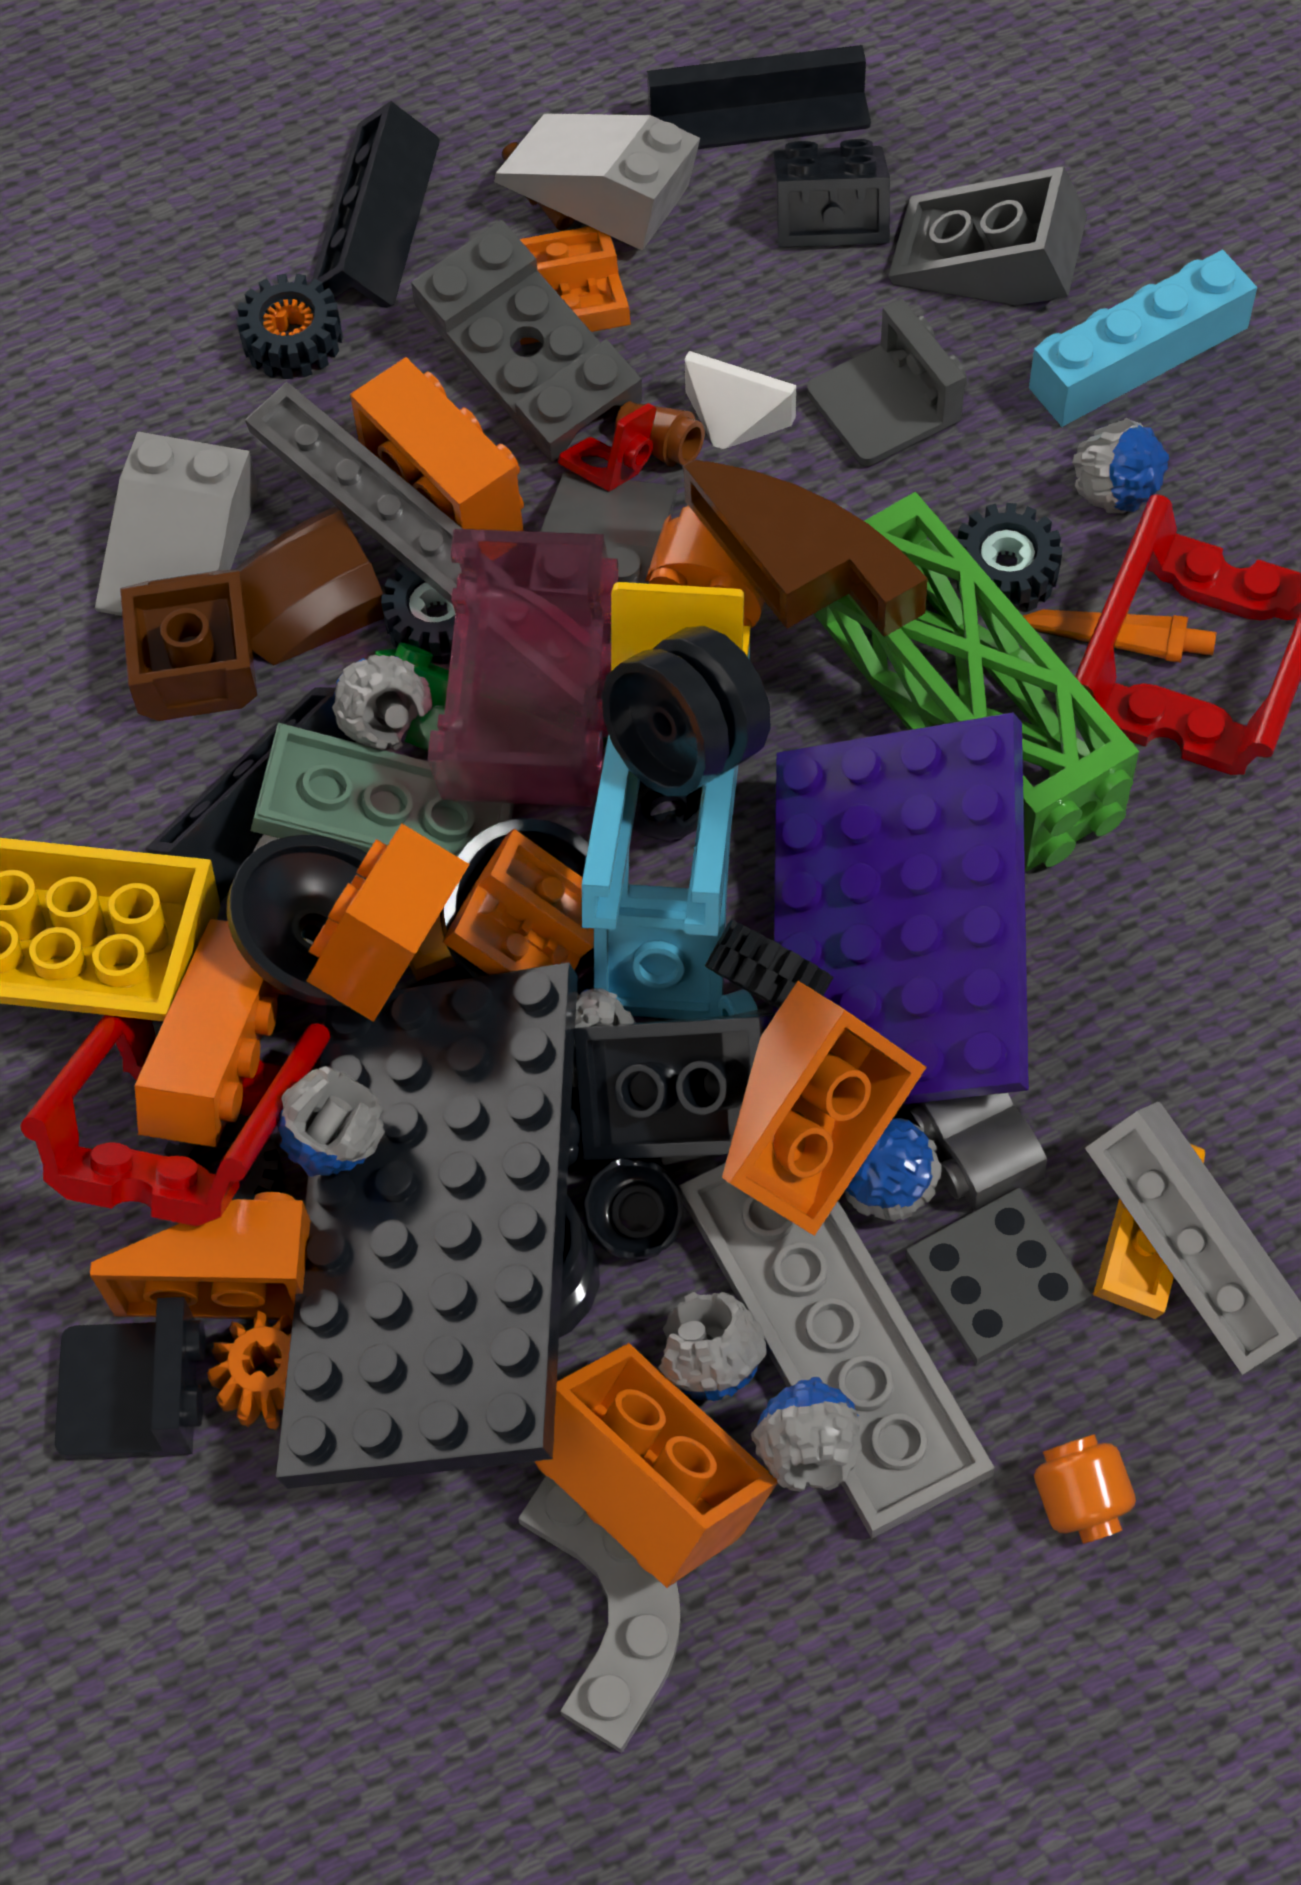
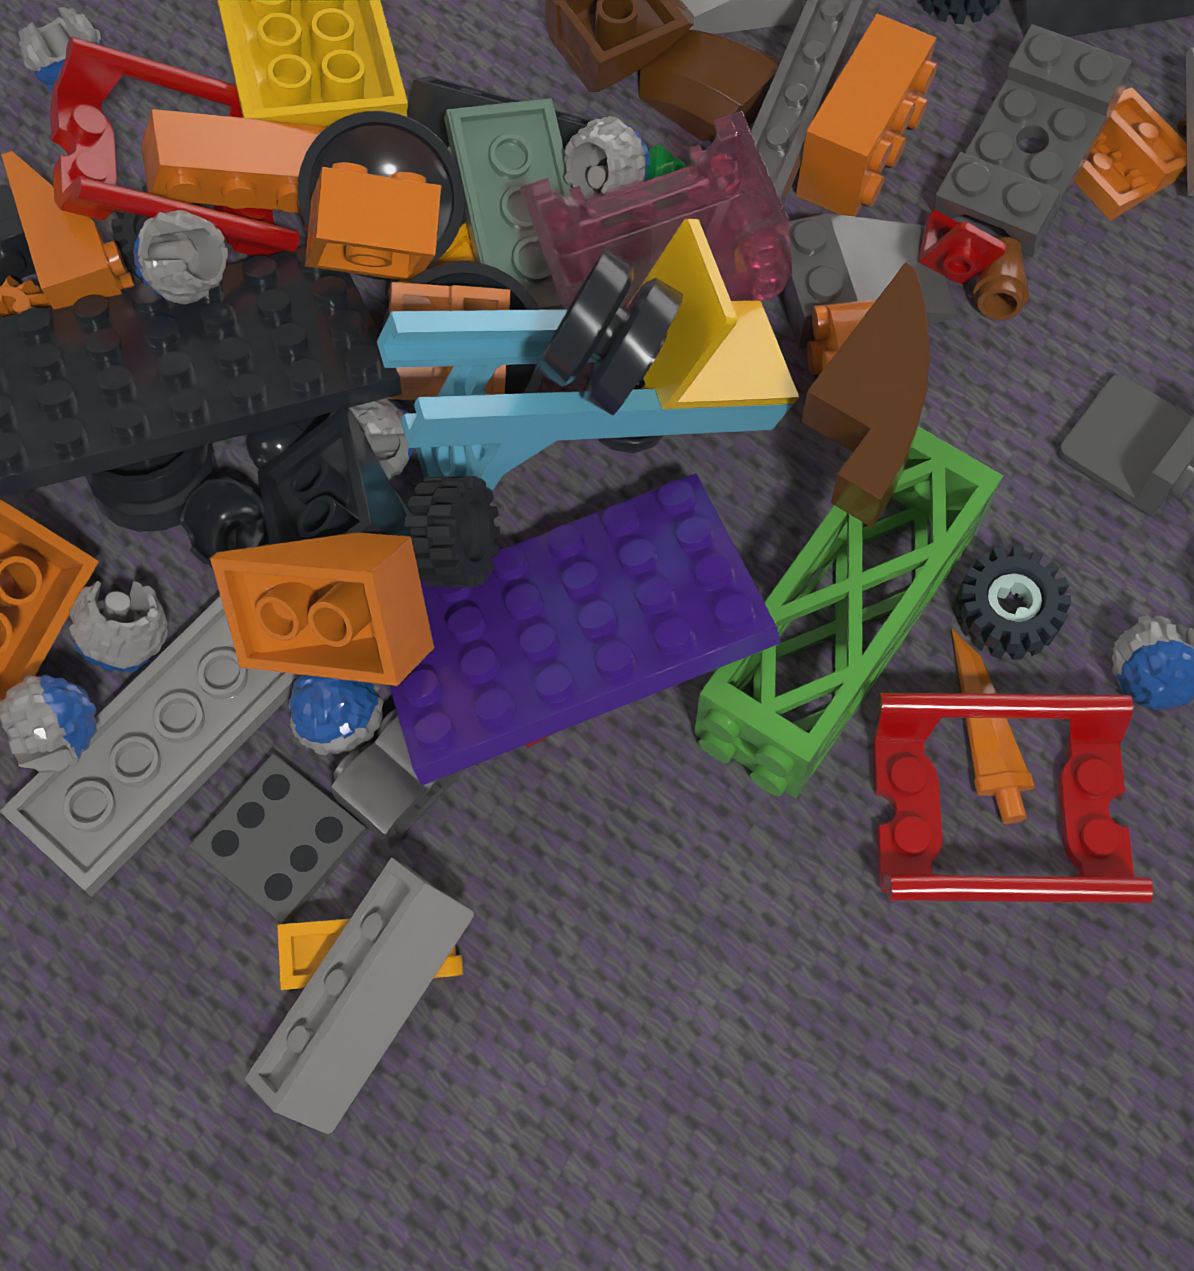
camera: 65 degrees right, 5 degrees up
(736, 401) = (1063, 325): white slope -> none
(1085, 1488) = (90, 973): orange head -> none

